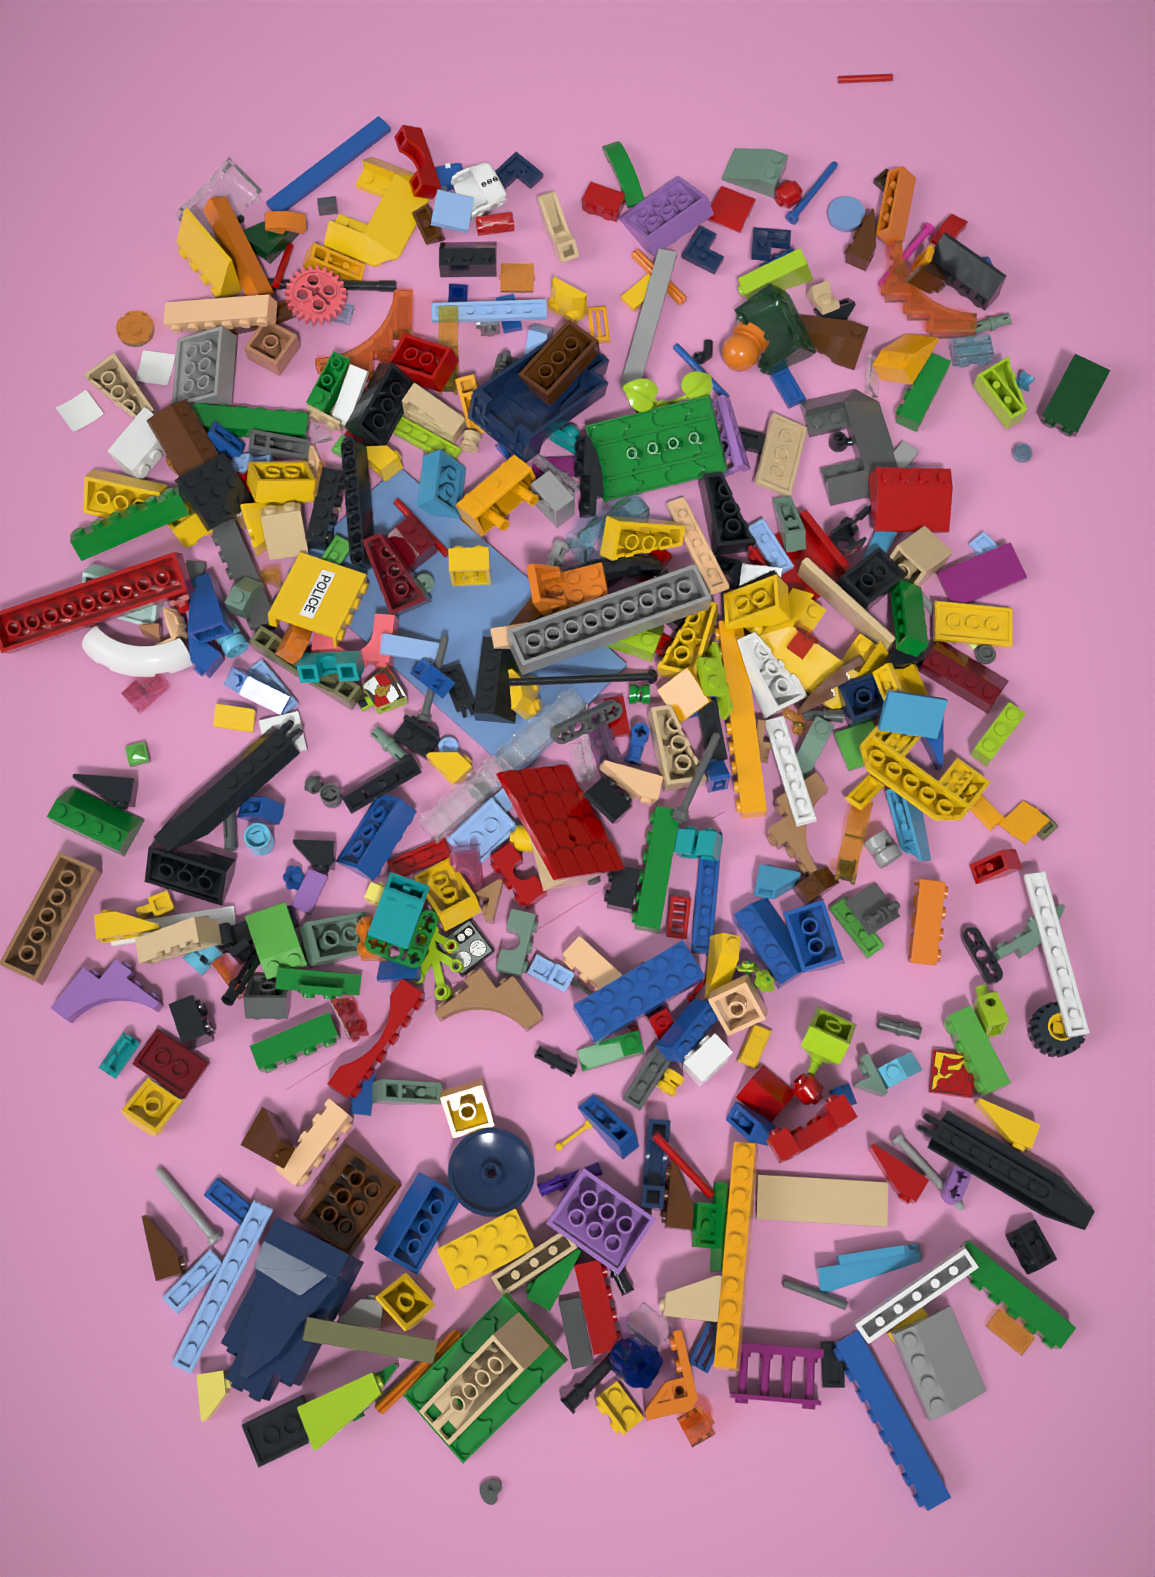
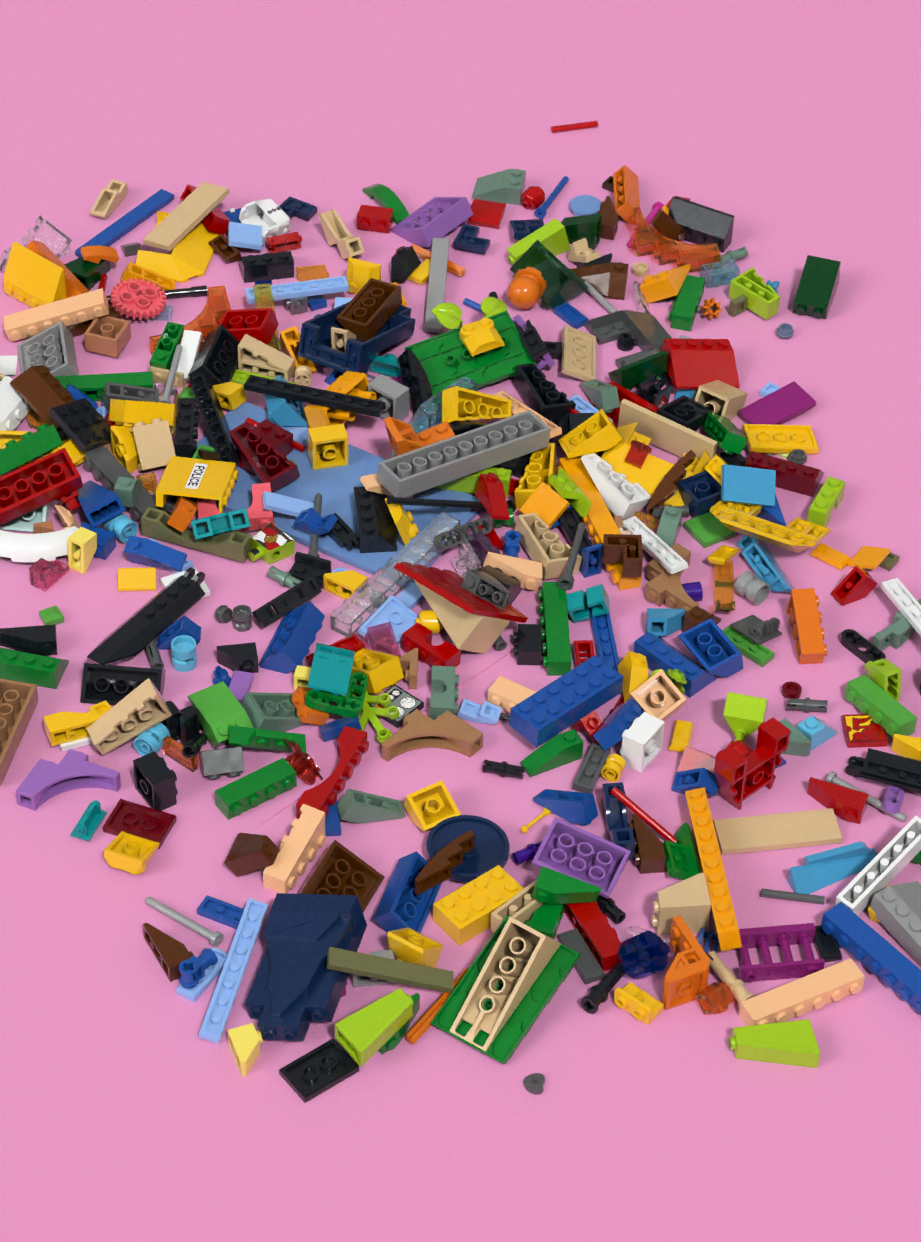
camera: 15 degrees left, 30 degrees down
(181, 672) = (81, 549): none -> light yellow slope
(183, 1283) = (194, 968): none -> blue connector
(313, 459) = (171, 376): none -> light grey bar
(317, 126) = (109, 199): none -> tan slope
(340, 557) = (208, 455): none -> dark brown tile
(390, 177) = (186, 216): none -> tan tile
(451, 1206) = (440, 866): none -> reddish brown slope
(467, 496) = (314, 396): none -> black tile
(517, 412) = (339, 338): none -> tan slope
(565, 1266) = (559, 888): none -> green slope
(587, 825) = (486, 587): none -> dark grey slope
(618, 283) = (403, 263): none -> black slope
(630, 676) = (492, 496): none -> red slope
(670, 432) = (480, 336): none -> yellow slope
(721, 1410) = (736, 985): none -> tan pin
(728, 441) = (532, 341): none -> black hinge
(750, 1496) = (777, 1043): none -> lime slope
(755, 787) = (625, 551): none -> reddish brown brick
(787, 1438) = (803, 994): none -> light nougat brick
(817, 838) = (694, 590): none -> dark purple brick
(827, 369) = (600, 298): none -> light grey bar
(829, 258) = (584, 227): none -> dark green slope
(838, 499) = (640, 370): none -> dark green slope
(883, 325) = (640, 269): none -> tan tile
(889, 1001) = (791, 690): none -> dark red tile
(946, 406) = (709, 312): none -> orange gear
(978, 405) = (737, 305): none -> olive tile

